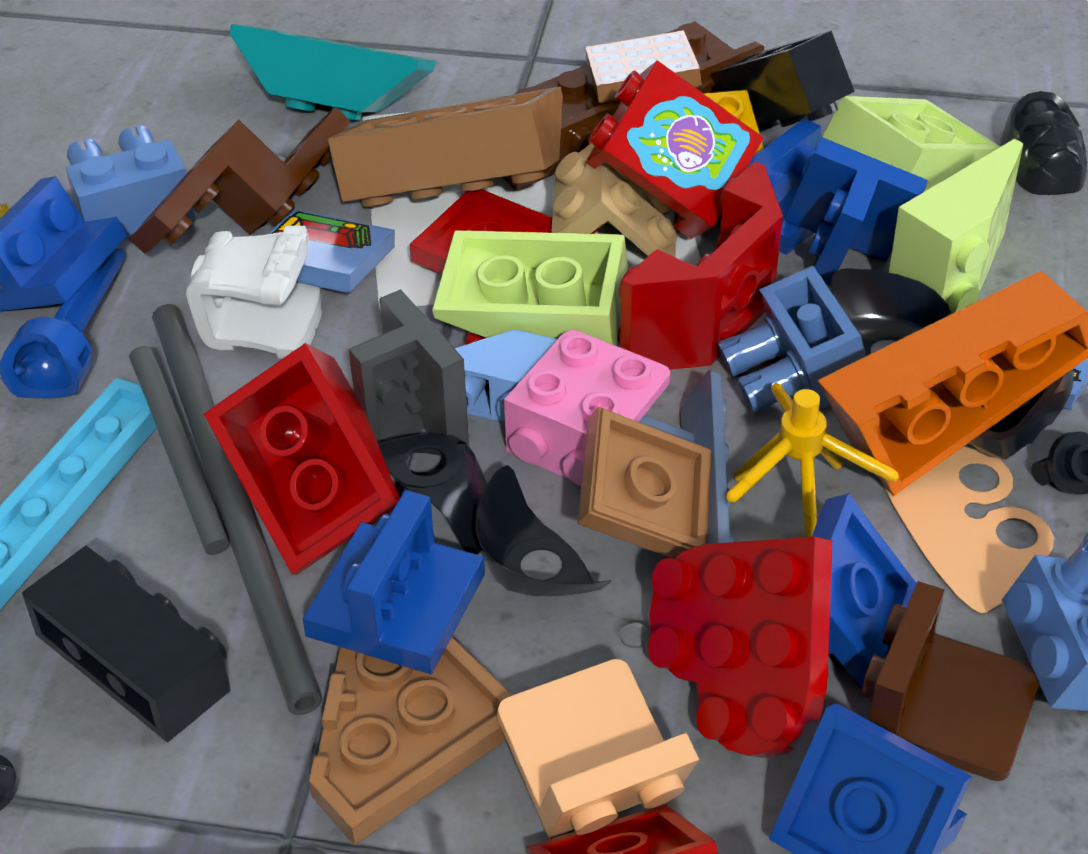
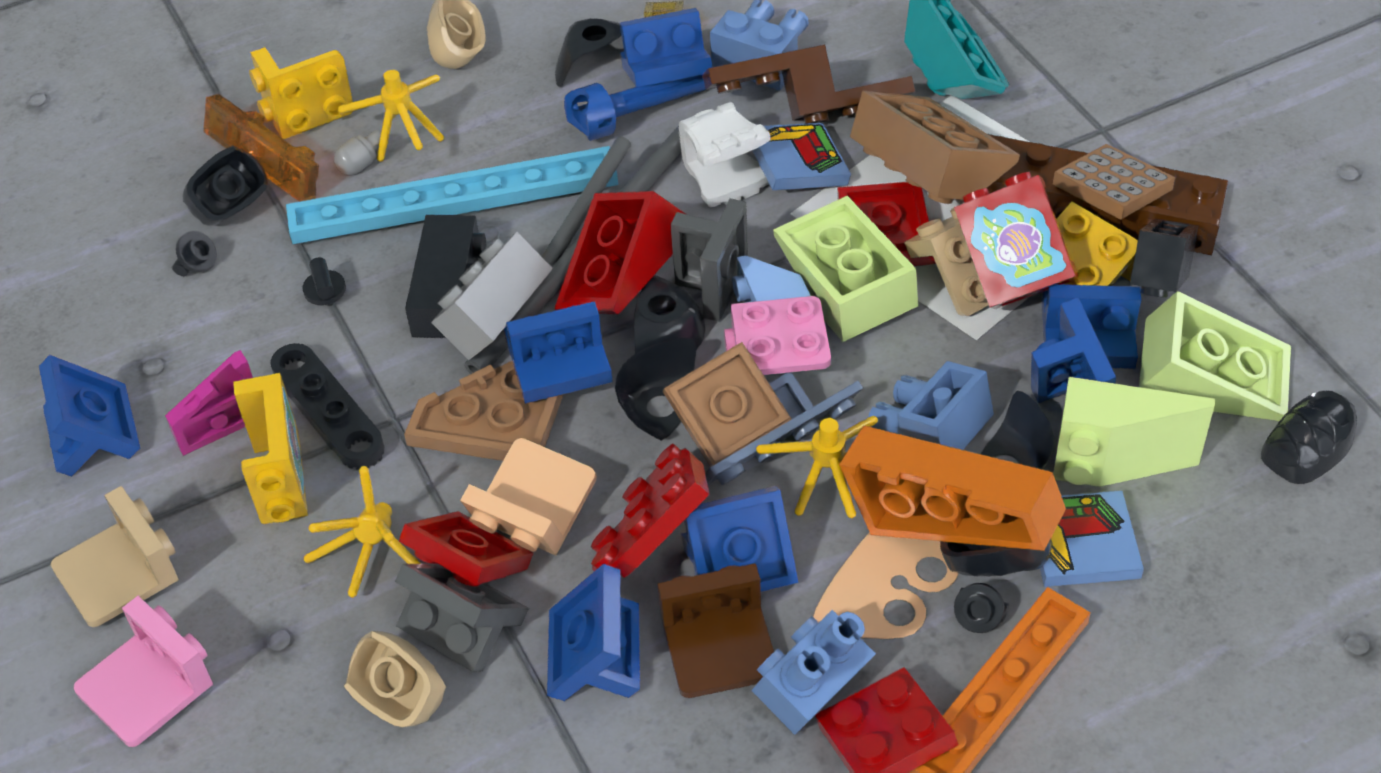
camera: 55 degrees right, 5 degrees up
(242, 602) = (490, 294): none -> light grey brick
(683, 310) = (923, 342): red slope -> none

